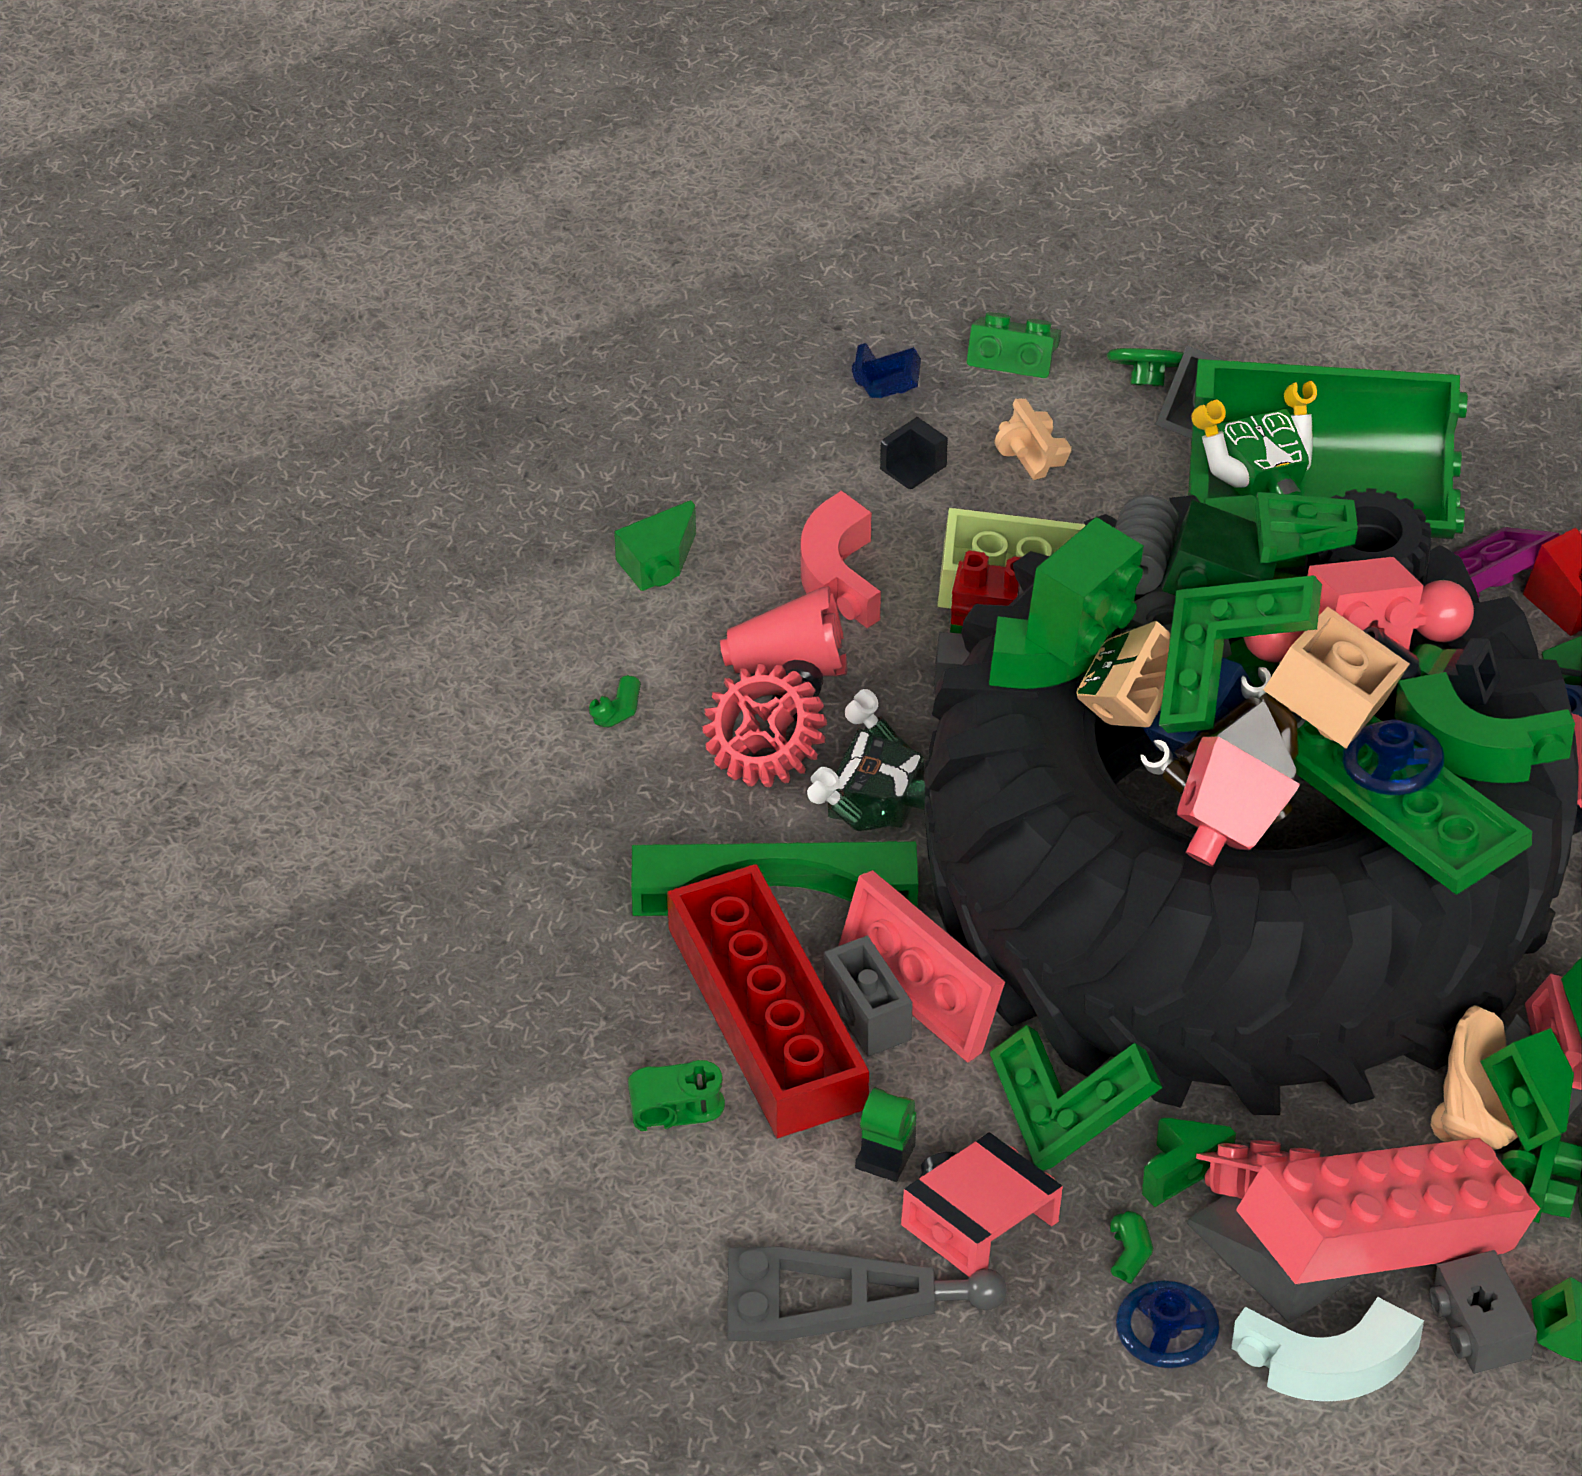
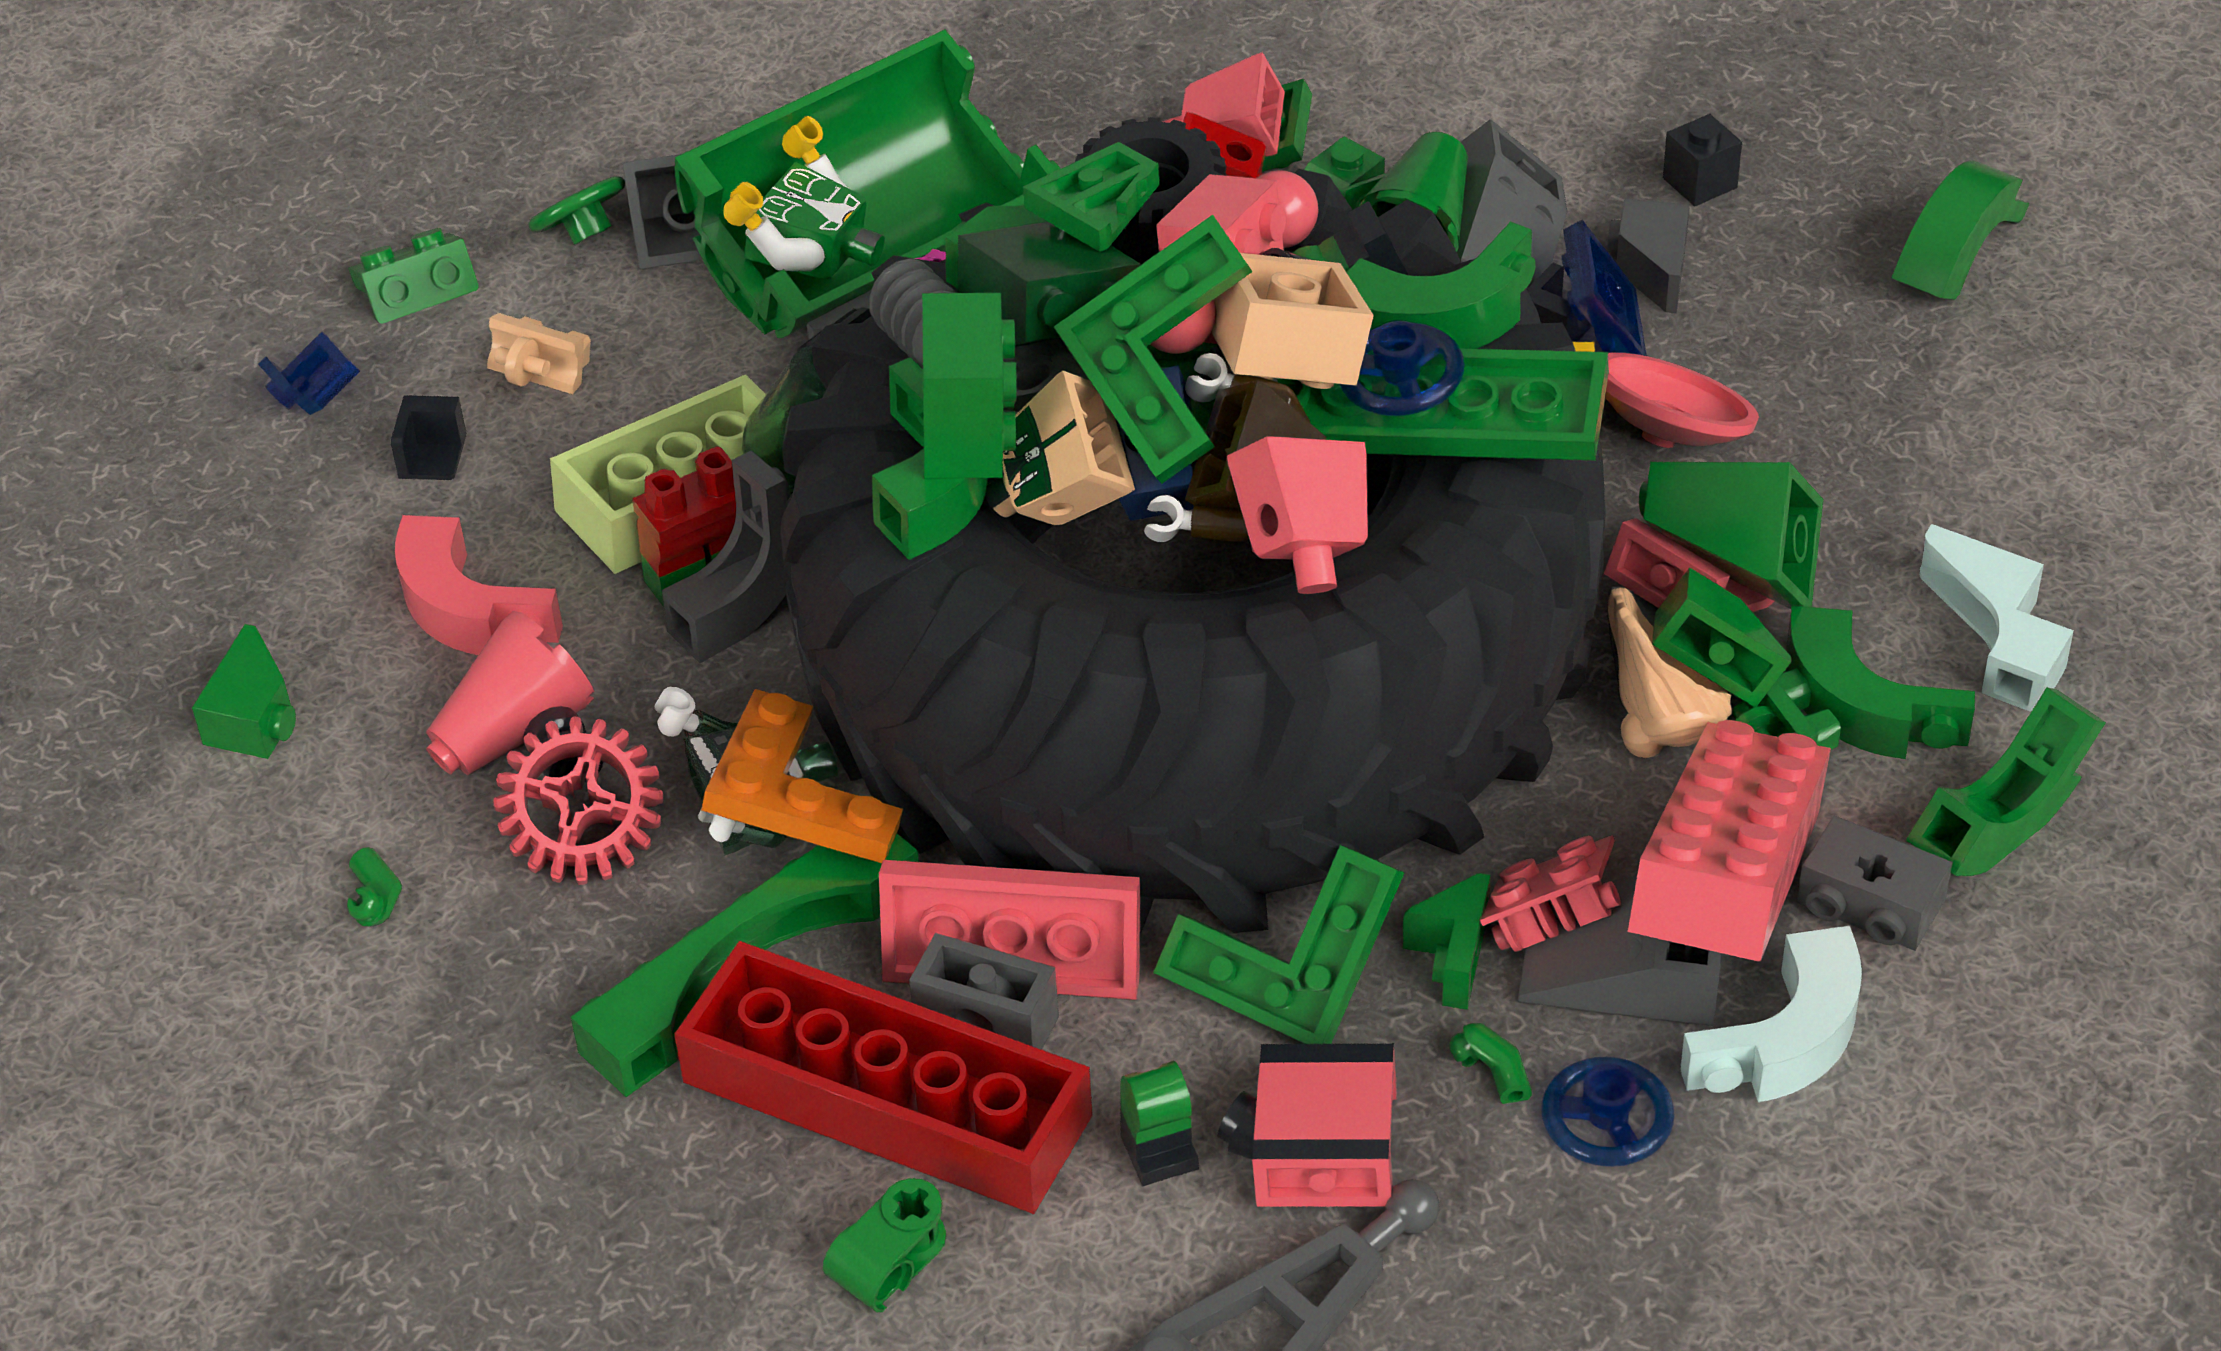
camera: 40 degrees left, 0 degrees up
(853, 787) = (756, 790): none -> orange plate

